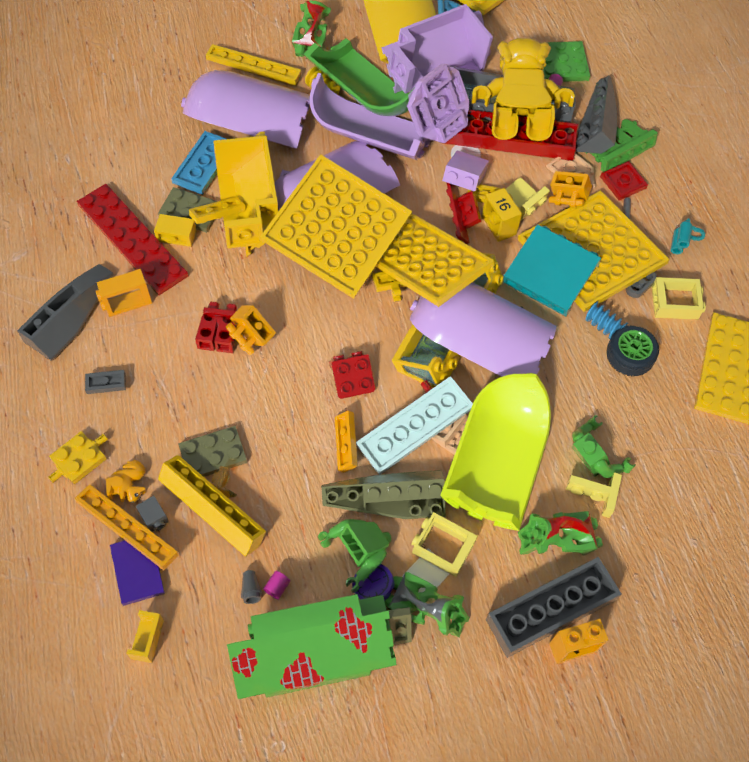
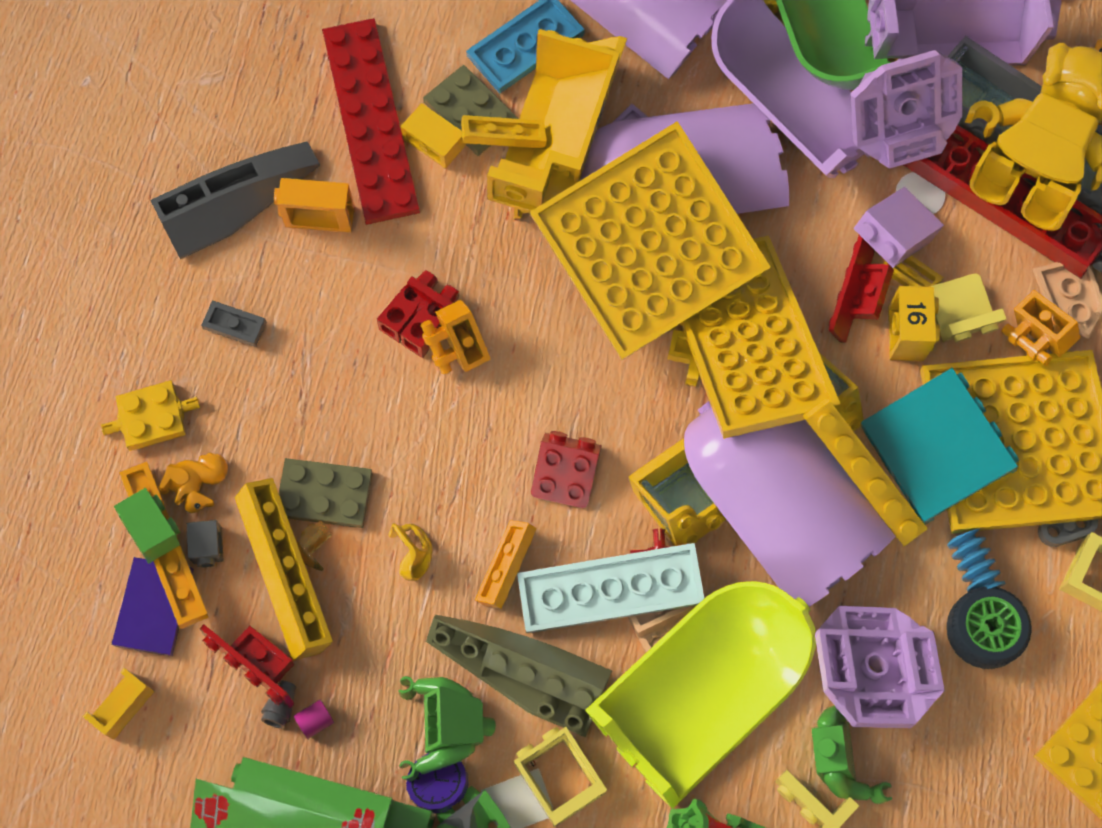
camera: 30 degrees right, 10 degrees up
(111, 516) = (147, 524): none -> bright green brick
(221, 565) = (257, 657): none -> red bracket
(291, 465) = (417, 560): none -> yellow piece
(522, 294) = (865, 471): none -> yellow plate
(589, 394) = (898, 650): none -> lavender piece

